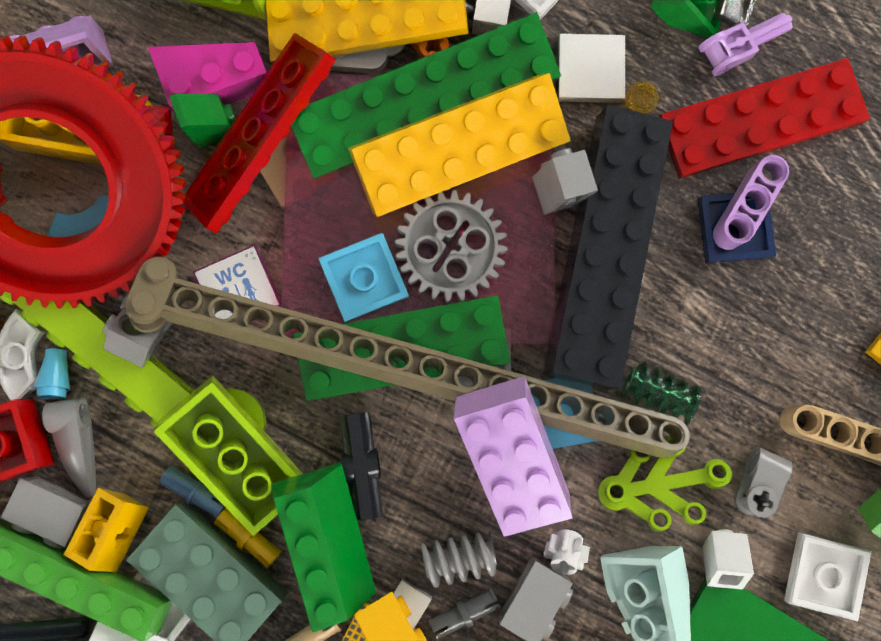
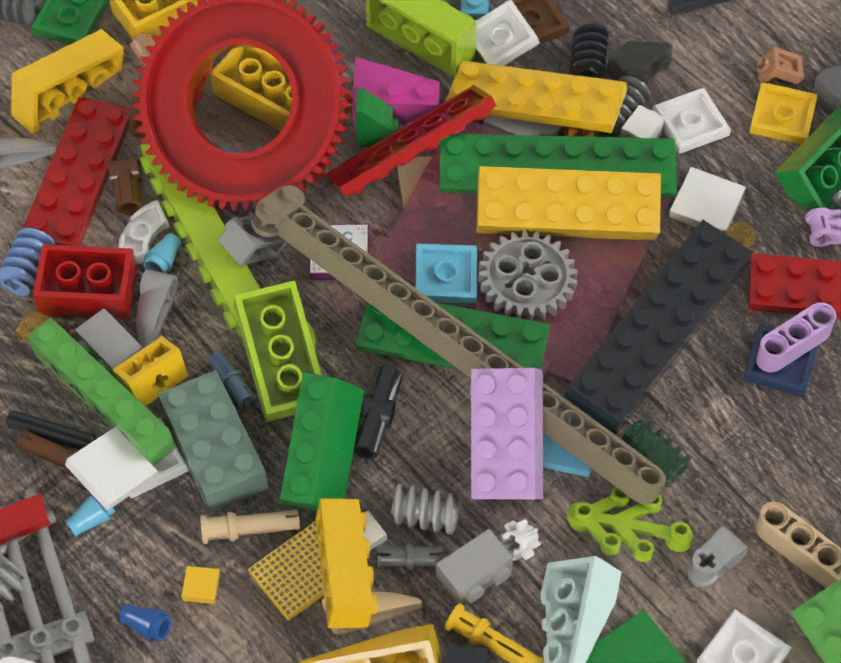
camera: 25 degrees right, 25 degrees down
(256, 545) = (257, 428): yellow pin -> none
(564, 181) = (640, 260): light grey brick -> none
(727, 559) = (656, 598): white brick -> none

